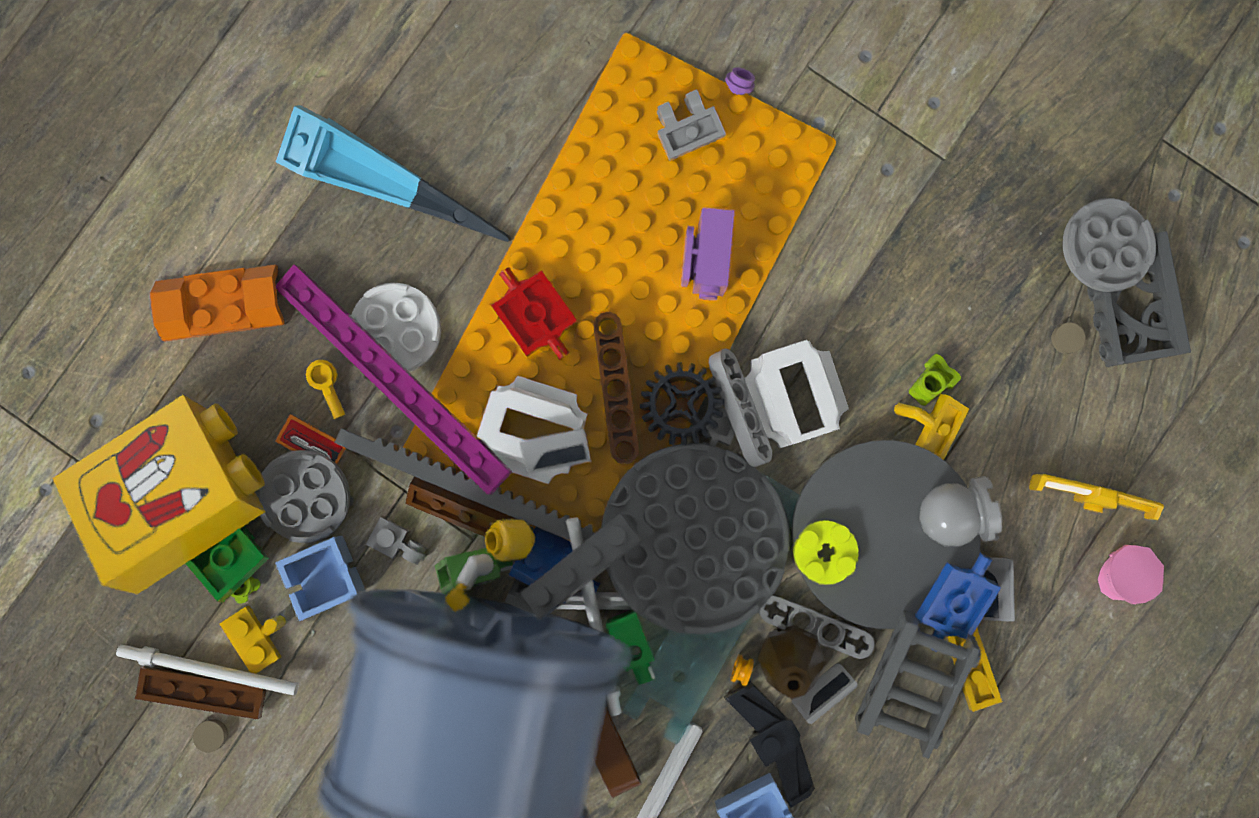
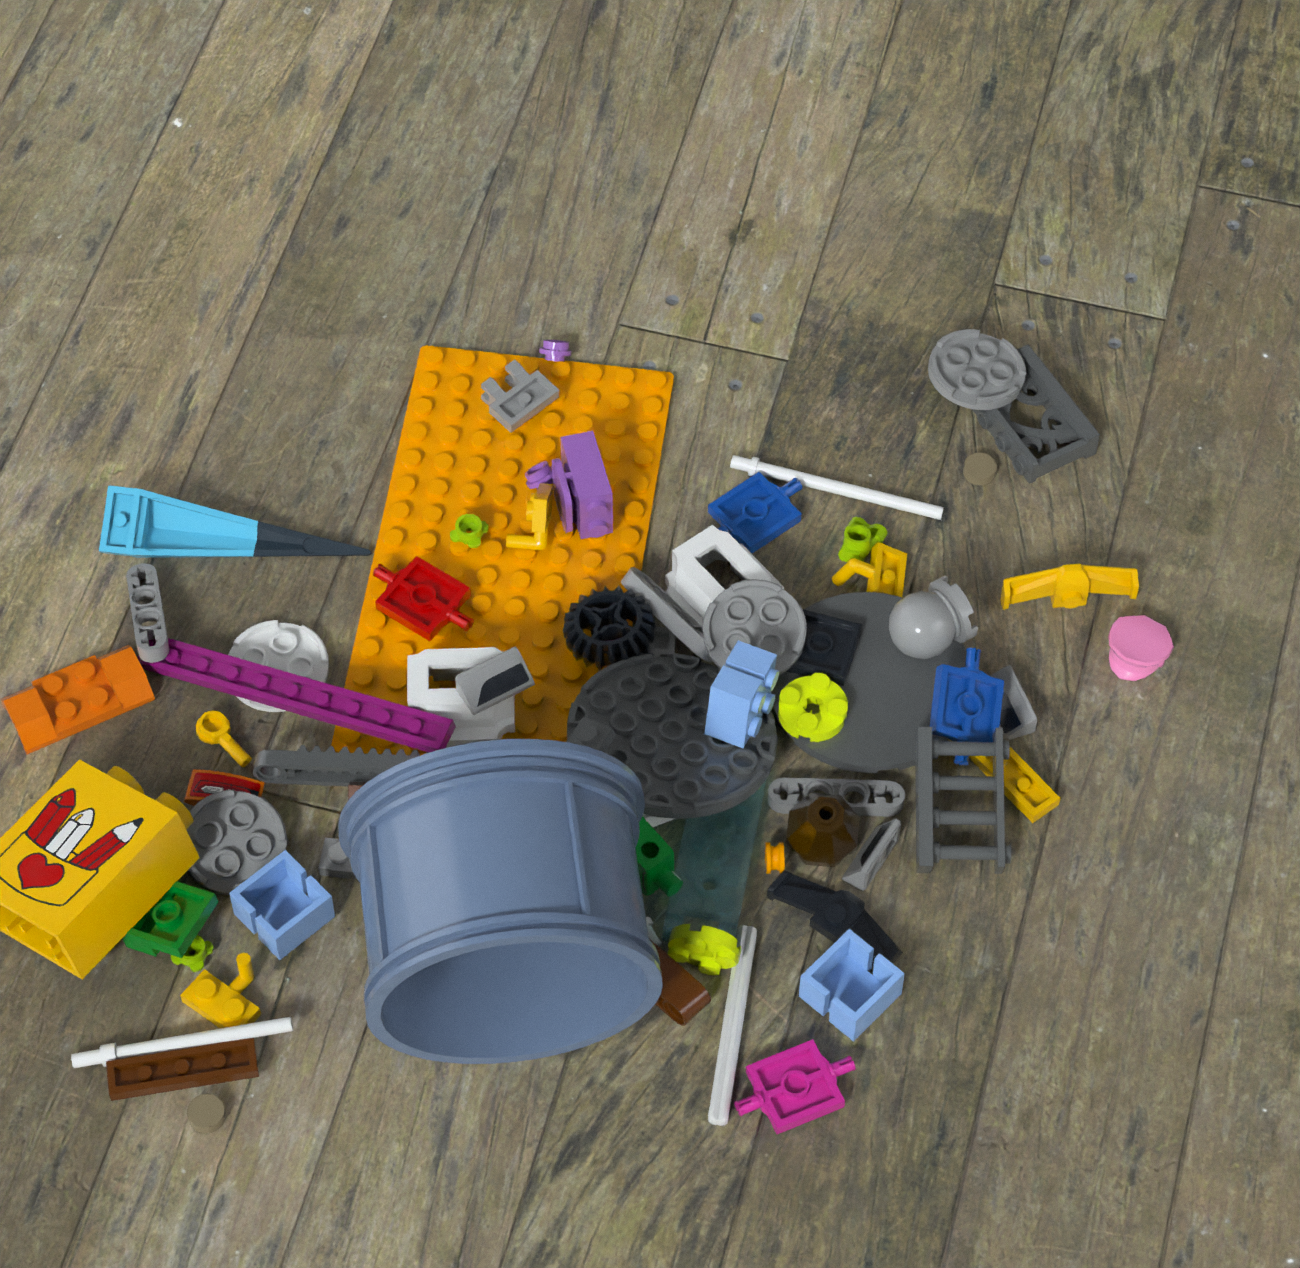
camera: 20 degrees left, 30 degrees down
(291, 243) = (147, 612): none -> light grey beam
(588, 254) = (469, 523): none -> lime plate
(615, 373) = (534, 623): reddish brown beam -> none
(649, 748) = (708, 948): none -> neon yellow plate
(658, 269) = (539, 512): none -> yellow plate
(678, 219) = (539, 474): none -> medium lavender plate
(770, 534) = (741, 694): none -> light blue piece
(803, 464) = (757, 615): none -> light grey tile
(853, 318) = (756, 511): none -> blue plate
(855, 491) = (827, 647): none -> black tile
(872, 268) = (754, 466): none -> white bar

